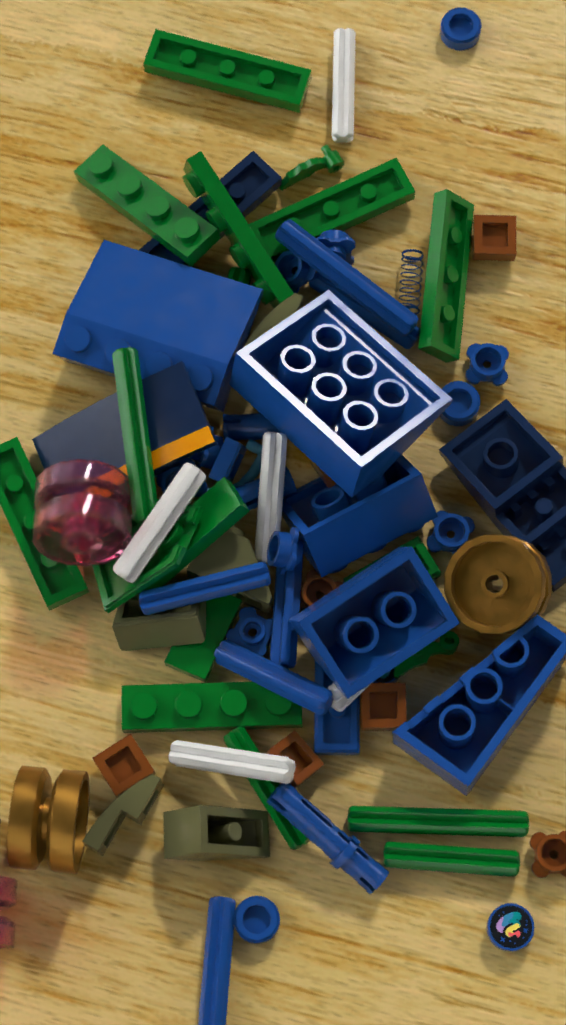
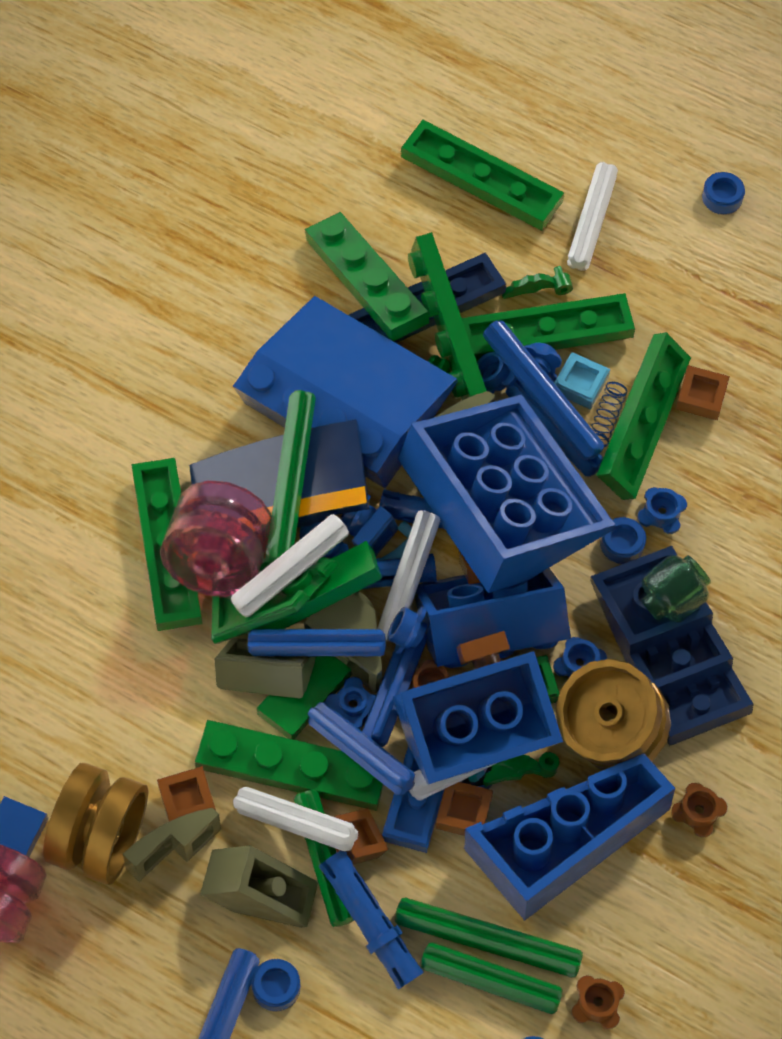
camera: 10 degrees right, 10 degrees down
(362, 555) = (483, 650): none -> dark orange plate
(377, 254) = (582, 380): none -> medium azure tile
(523, 445) = (675, 588): none -> clear green head

